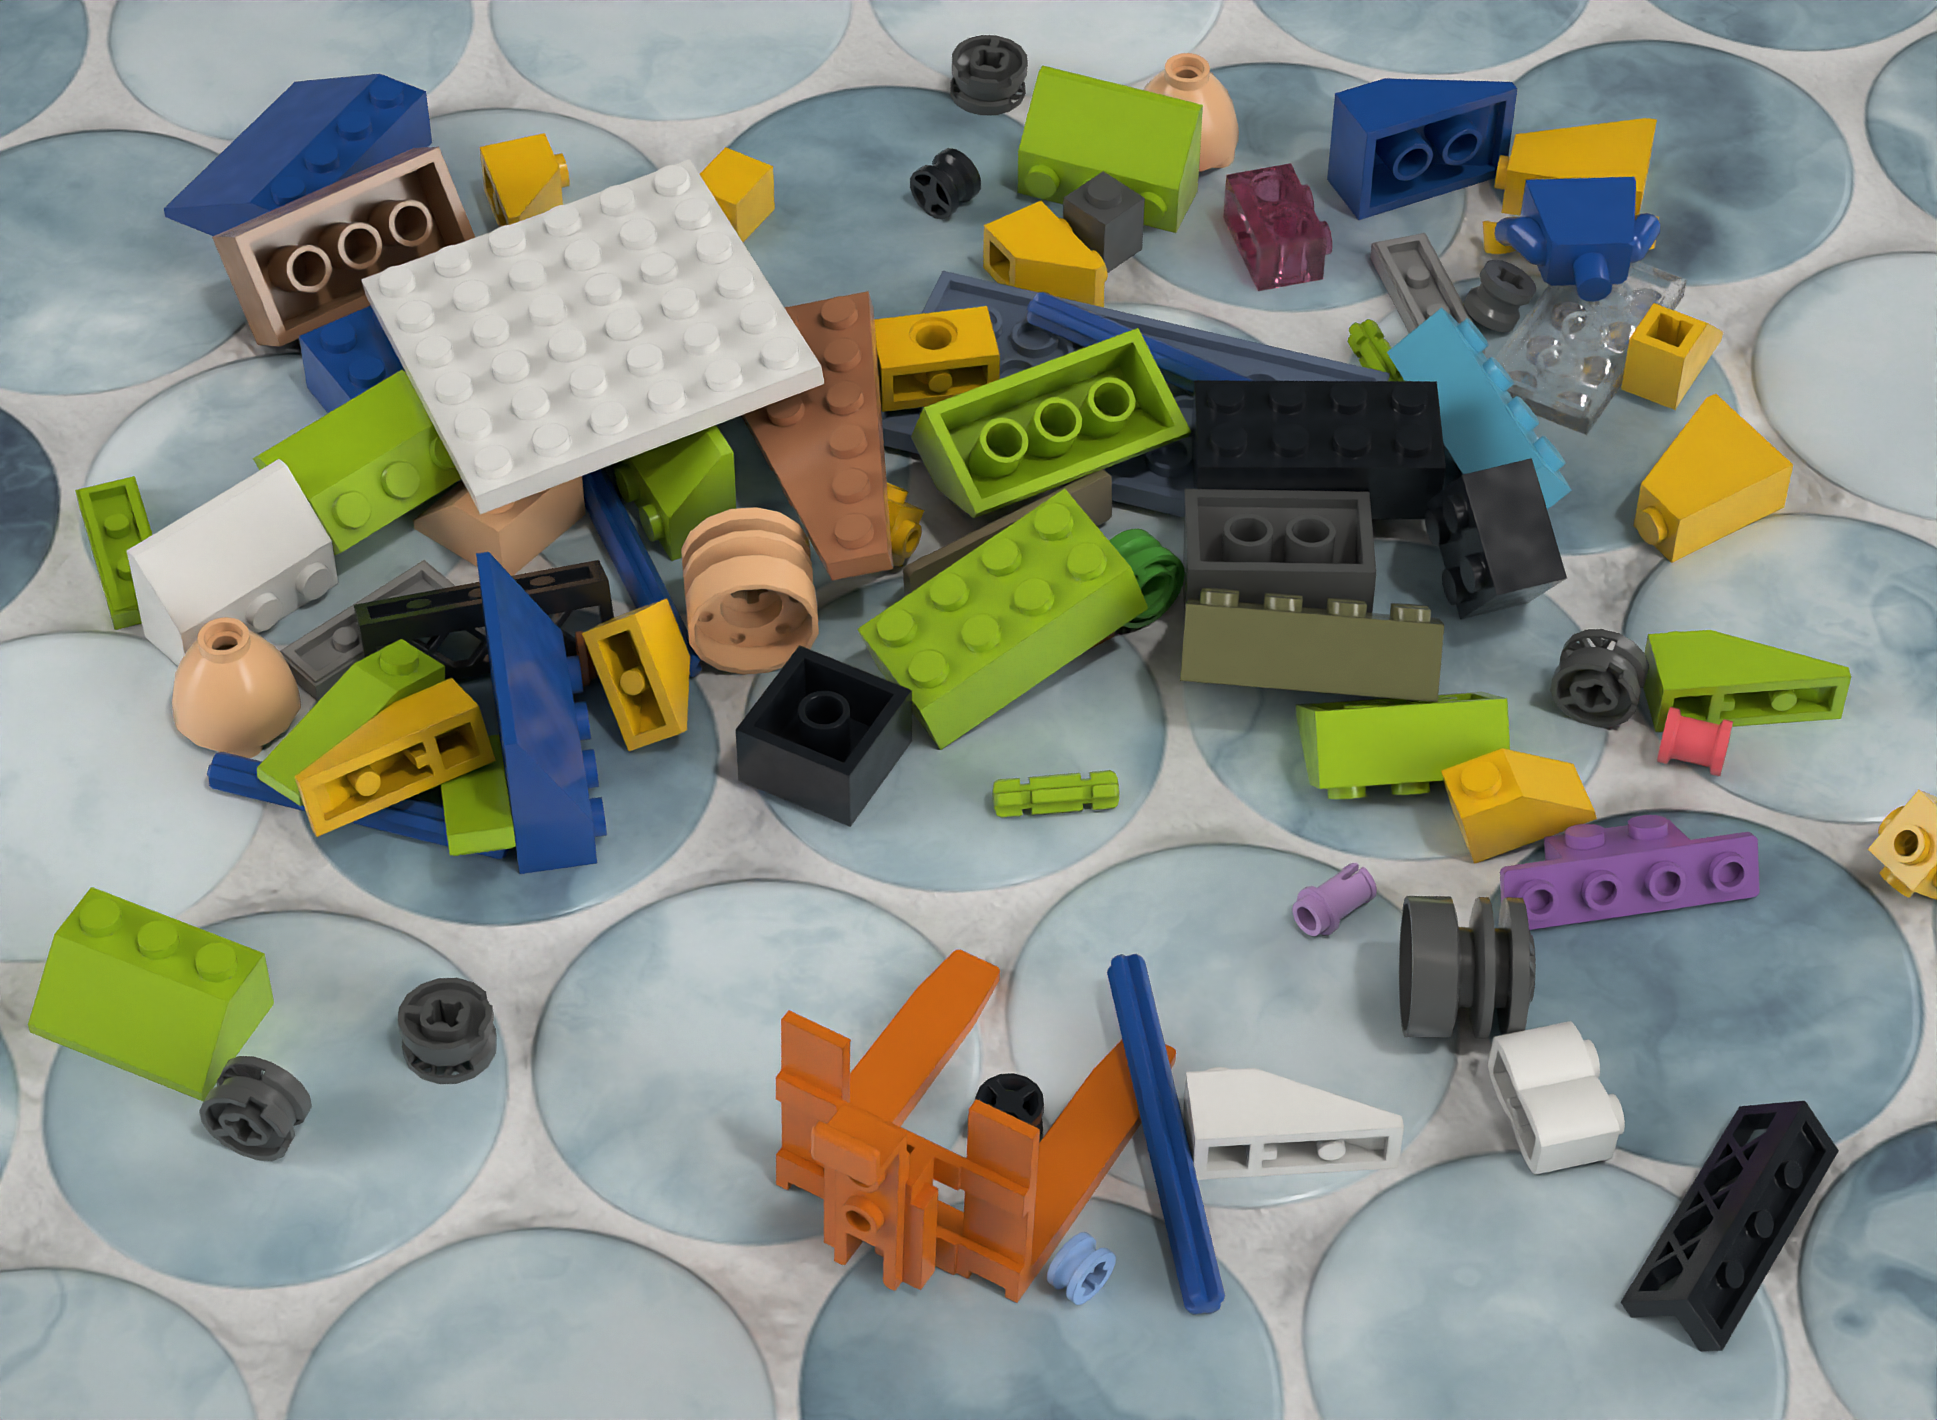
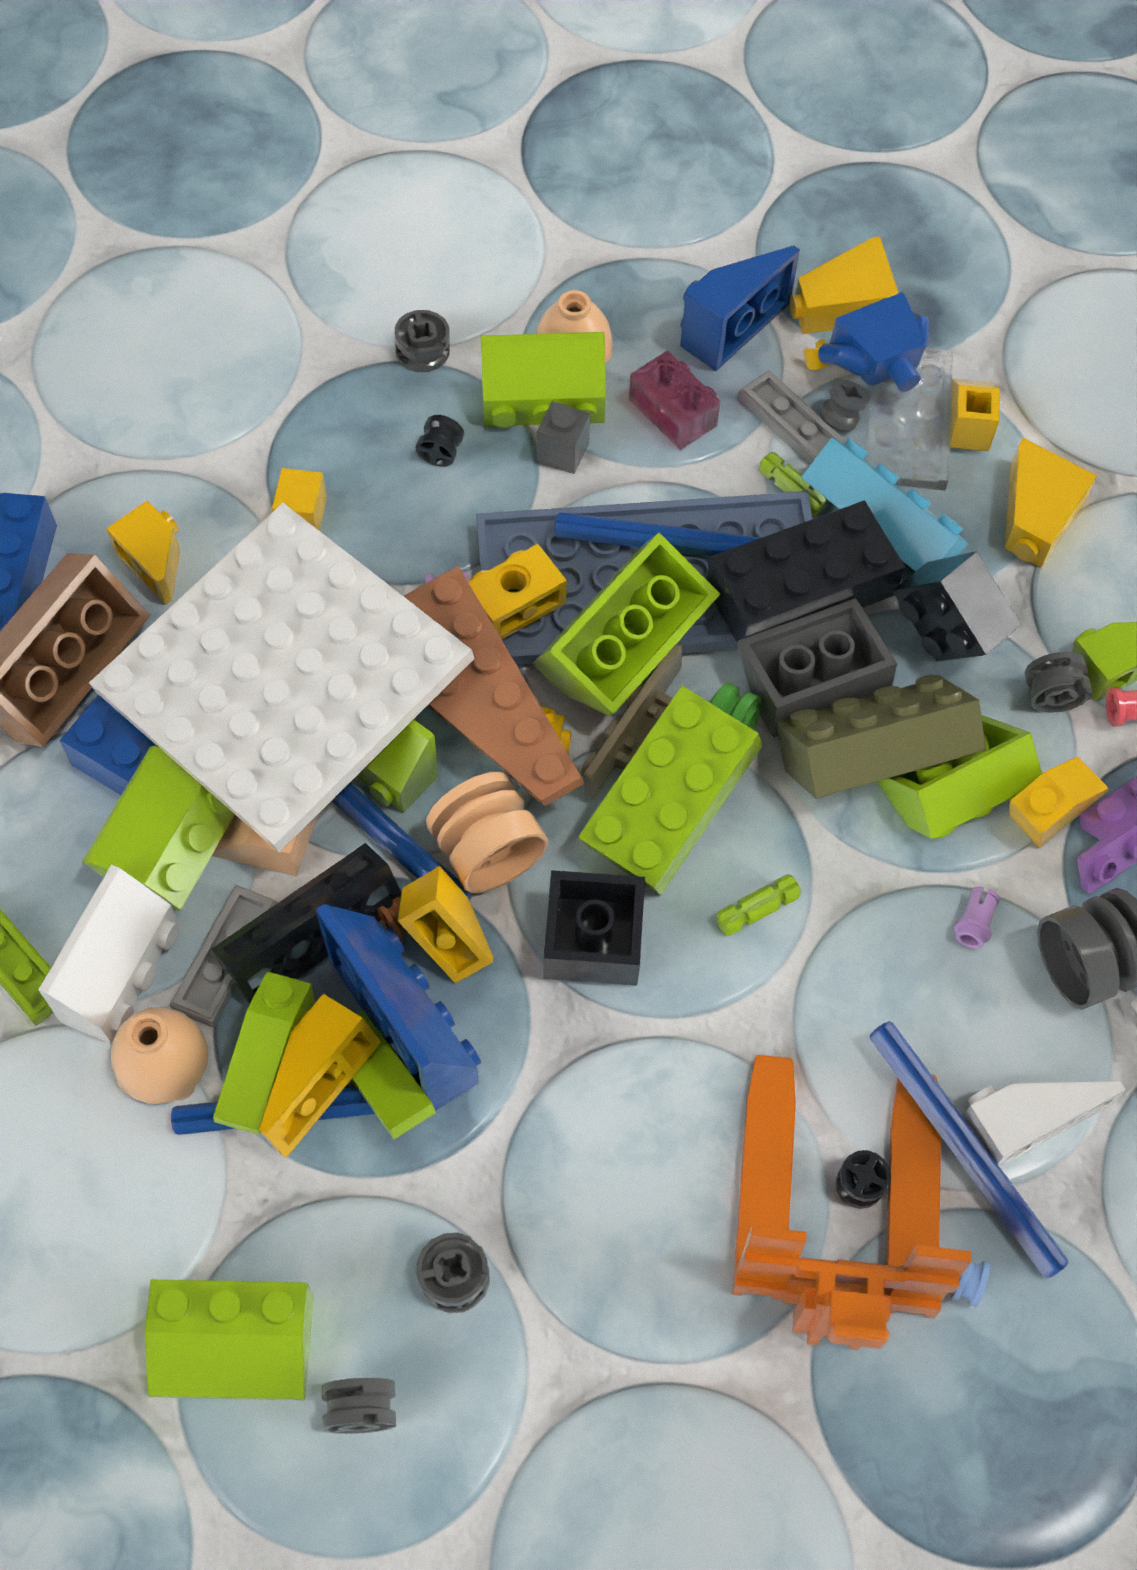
camera: 25 degrees left, 15 degrees up
(1043, 254) = (537, 480): yellow slope -> none

